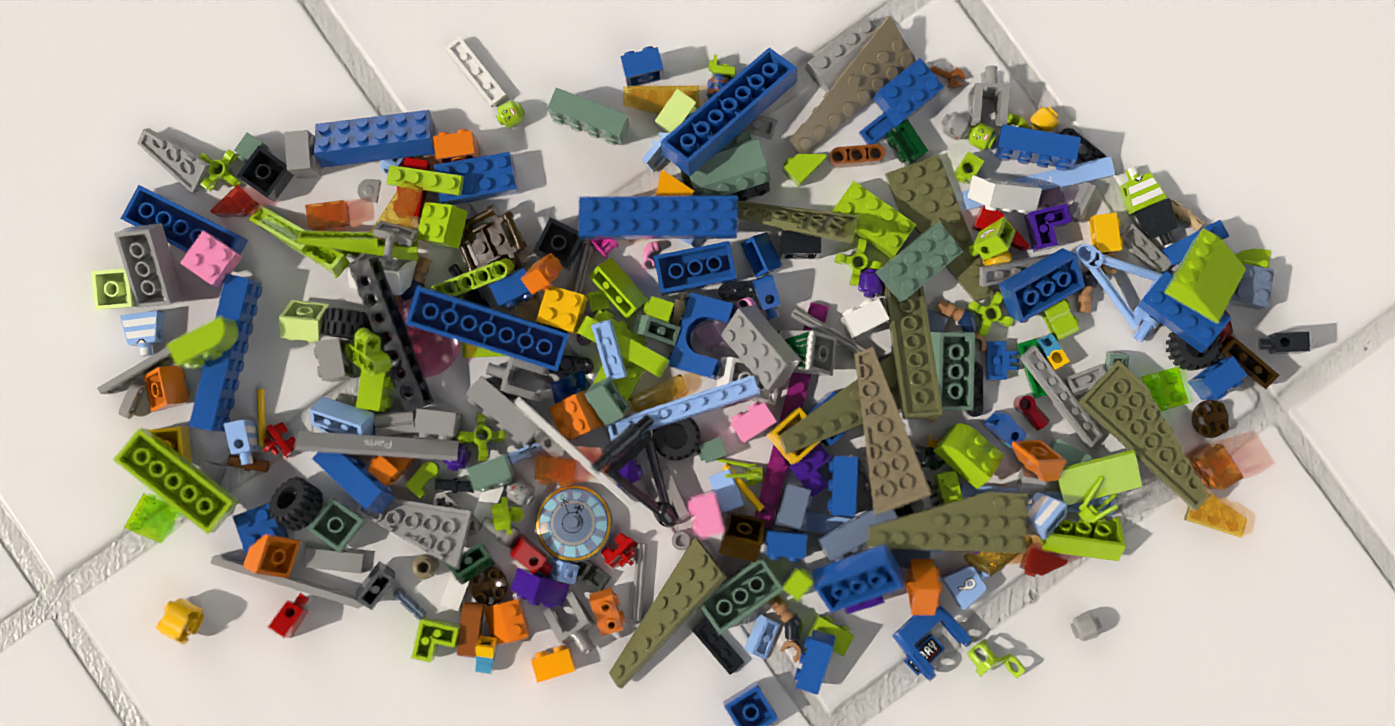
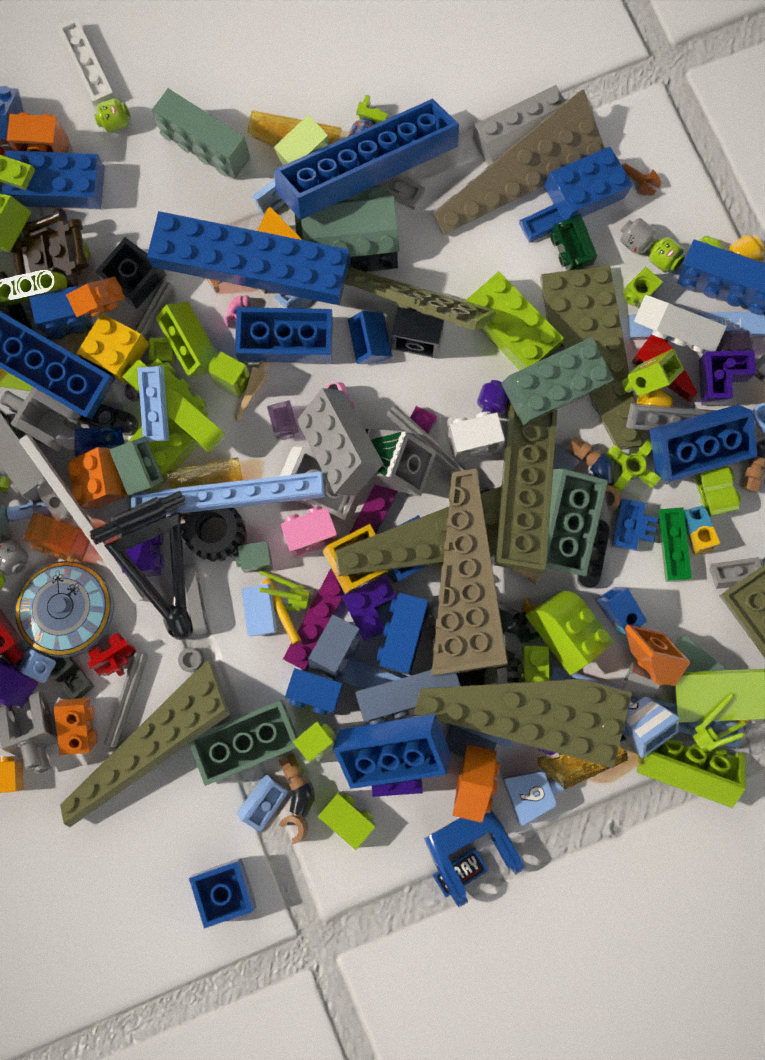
camera: 20 degrees right, 5 degrees down
(600, 244) = (183, 285): dark pink piece -> none
(642, 66) = (278, 90): blue brick -> none
(656, 329) = (219, 396): sand green brick -> none
(697, 310) = (276, 386): blue arch -> none
(706, 513) = (221, 627): bright pink brick -> none
(718, 646) = (204, 803): black tile -> none
(735, 286) = (328, 368): black beam -> none
(742, 536) = (263, 669): dark brown brick -> none
(766, 286) = (364, 375): blue torso -> none
(802, 166) = (443, 245): lime slope -> none
(814, 661) = (317, 848): blue brick -> none
(863, 150) = (519, 240): dark orange beam -> none
(867, 264) = (468, 364): lime pin -> none
(989, 89) = (685, 201): light grey piece -> none
(993, 661) = (543, 900): lime piece -> none
(1032, 412) = (661, 598): dark red piece -> none
(1040, 562) = (632, 787): clear red slope -> none
(1061, 396) = (701, 585): light grey tile -> none
(1086, 627) = (674, 883): light grey head -> none

